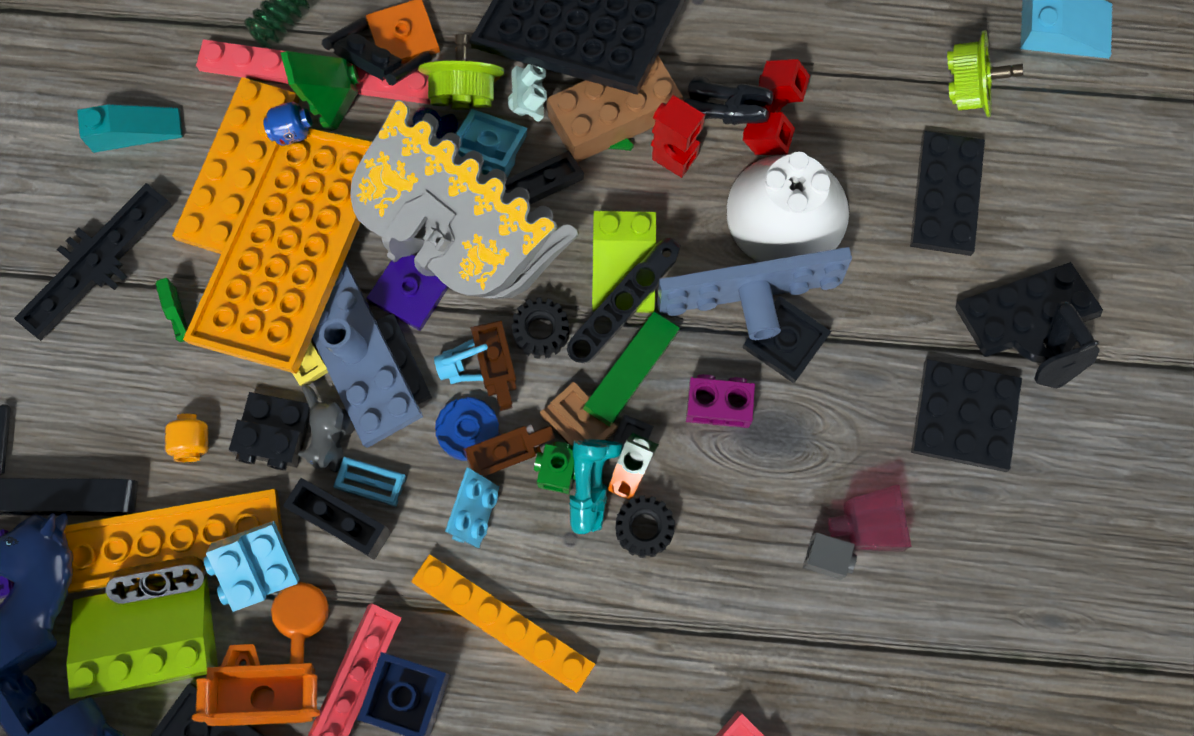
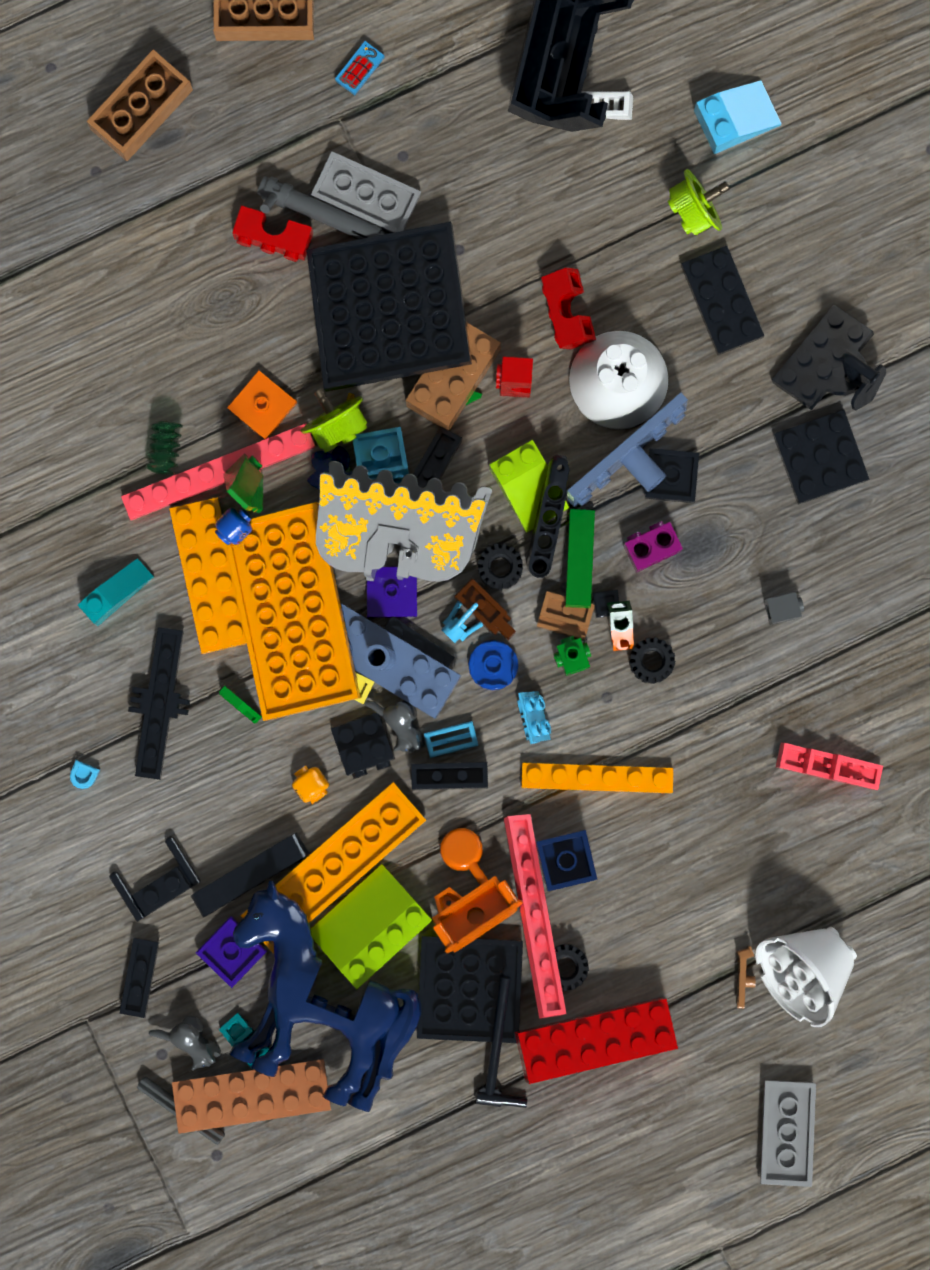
camera: 30 degrees left, 10 degrees up
(145, 590) = (358, 875): black beam -> none
(250, 566) = (413, 840): medium azure plate -> none
(370, 57) = (256, 441): black plate -> none
(506, 449) = (530, 663): reddish brown hinge -> none
(528, 92) = (386, 402): light aqua hips -> none
(590, 497) = (606, 663): teal piece -> none
(742, 102) = (543, 332): black piece -> none
(874, 521) = (799, 568): clear pink torso -> none

